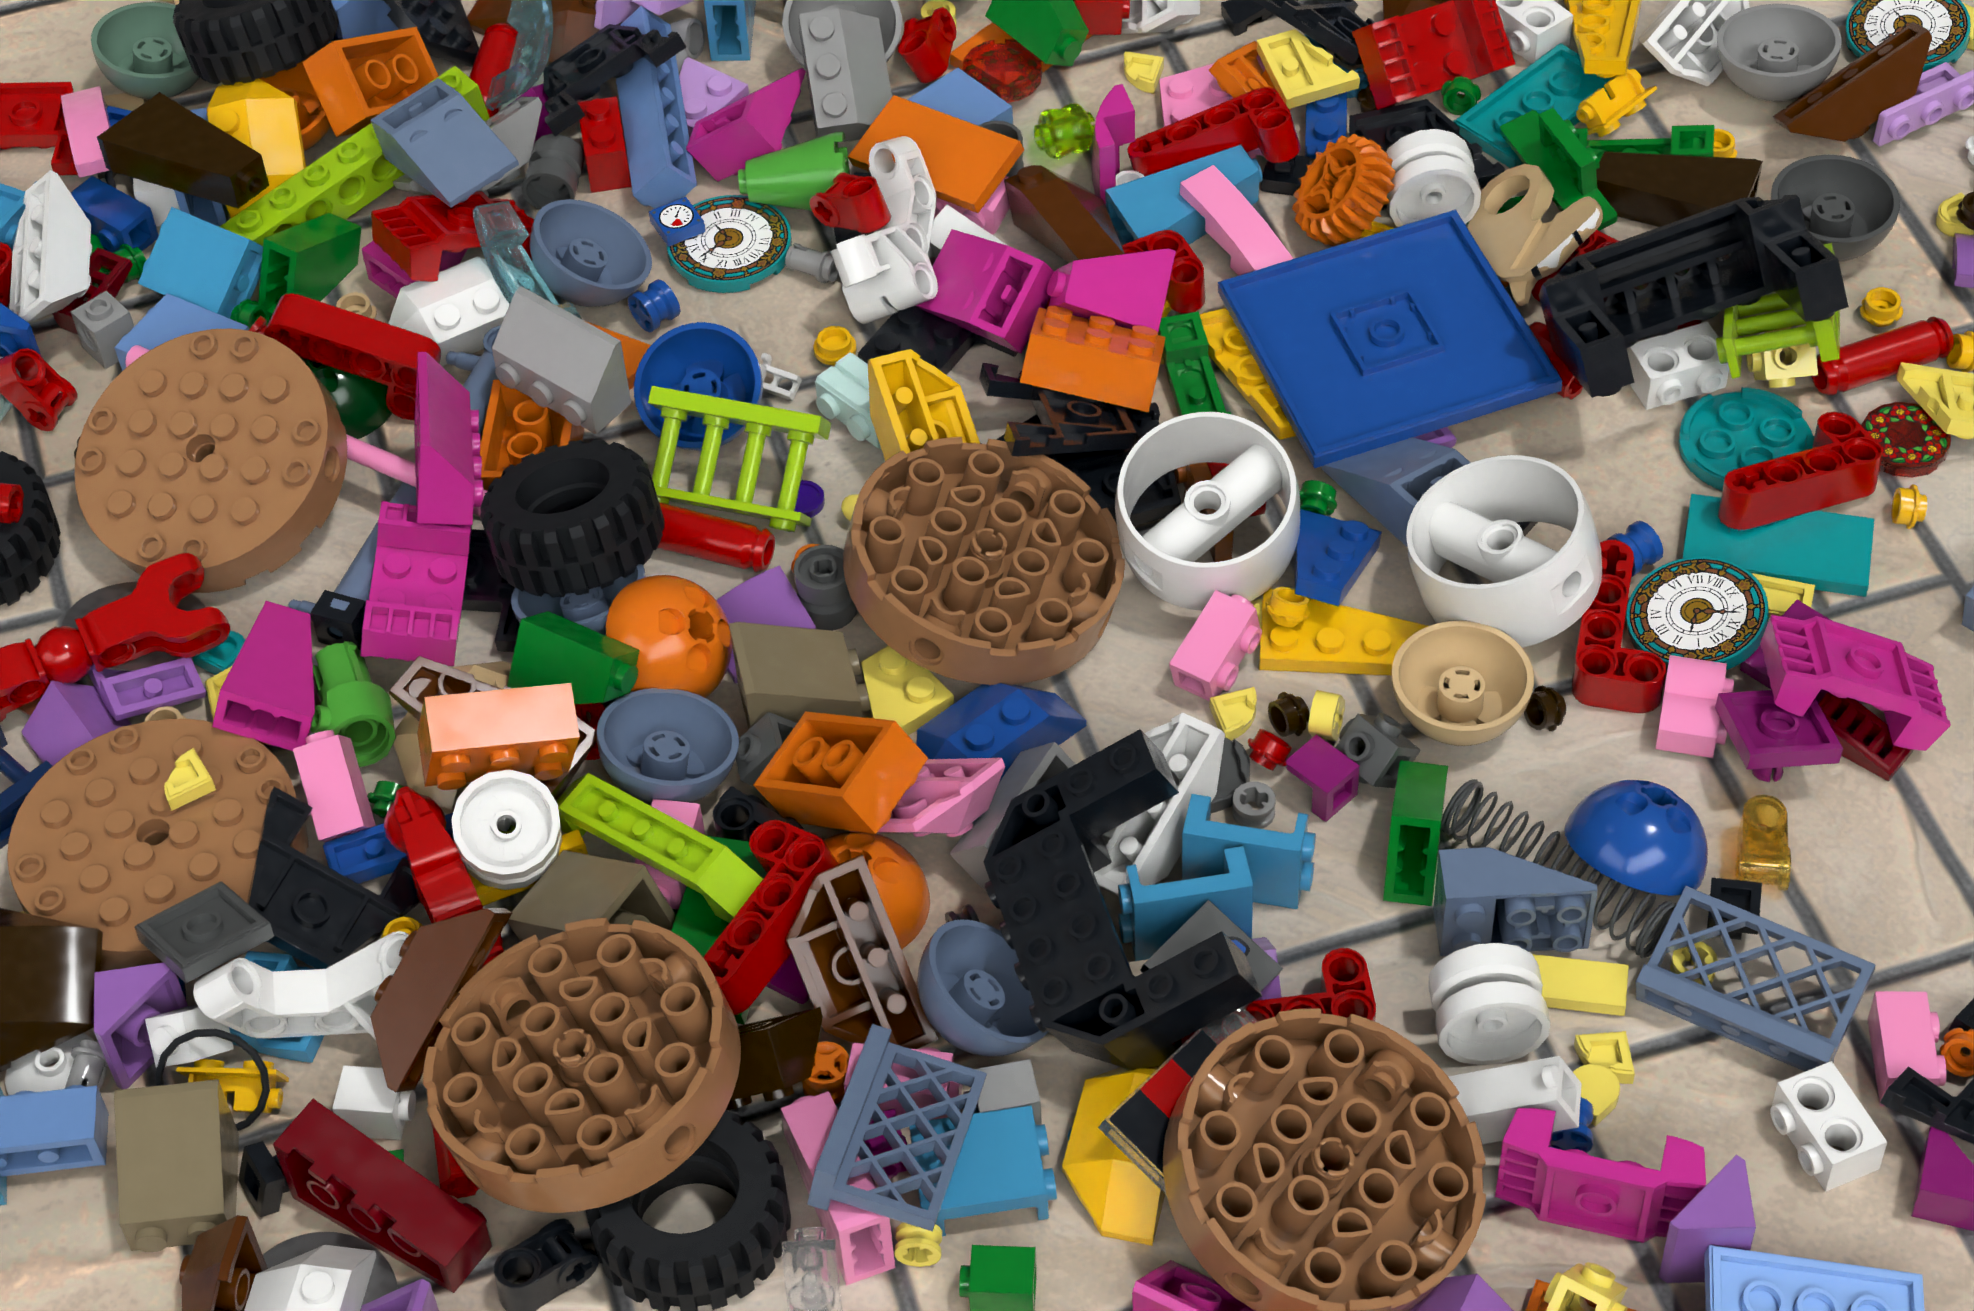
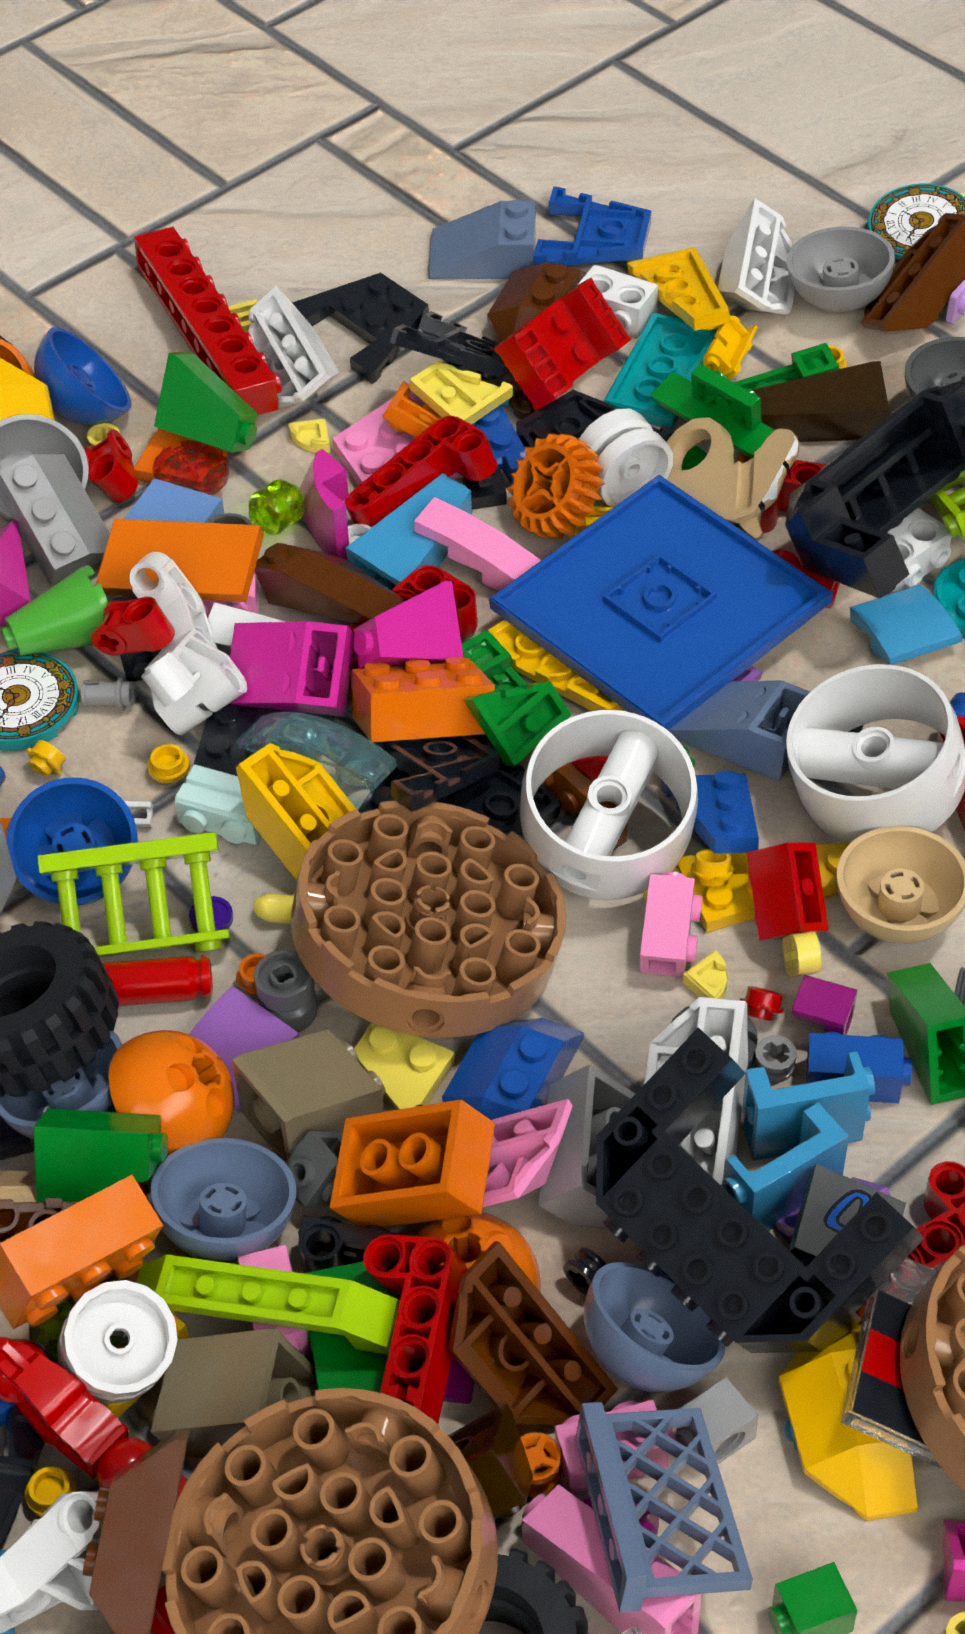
camera: 25 degrees left, 0 degrees up
(724, 306) = (45, 758): none -> yellow plate
(917, 1245) = (718, 1607): light yellow bush -> none
(974, 367) = (352, 755): none -> clear light blue slope
(996, 1166) = (760, 1491): dark azure panel -> none
(1169, 394) = (518, 717): none -> green wing
(1288, 714) = (760, 965): dark brown plate -> none
(1343, 649) = (787, 890): none -> red brick
(1343, 840) = (882, 1054): none -> blue brick
(1376, 747) = (870, 963): dark grey brick -> none
(1456, 102) = (596, 386): green plate -> none
(1634, 438) = (905, 624): none -> dark azure slope

